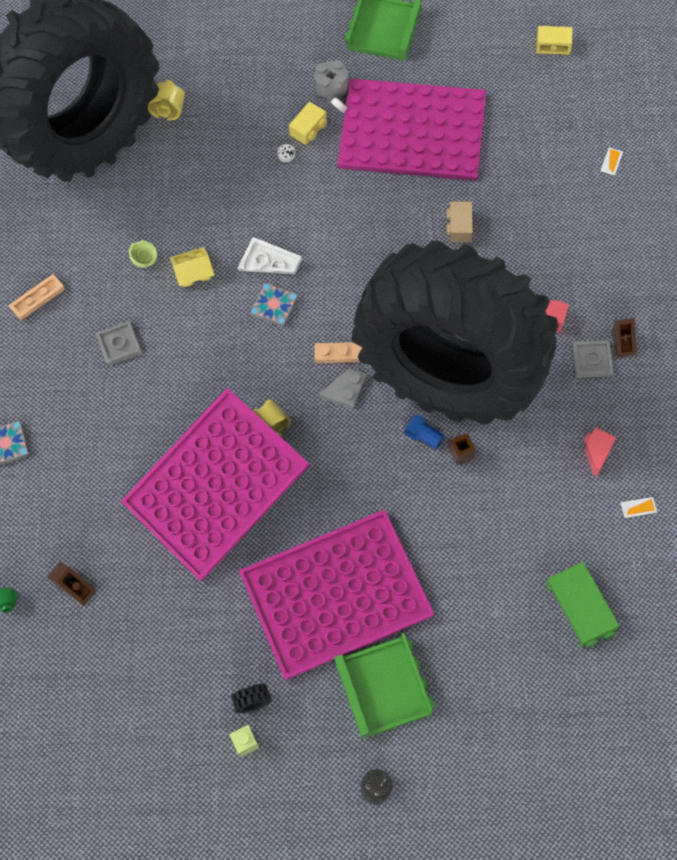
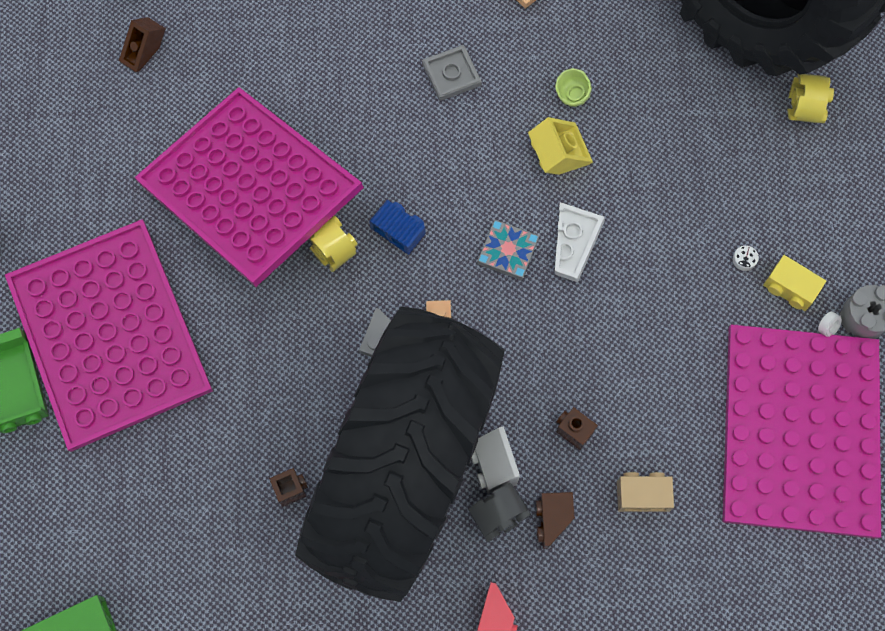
camera: 85 degrees right, 5 degrees up
(253, 378) = (398, 226): none -> blue brick
(419, 429) = (322, 434): blue piece -> none

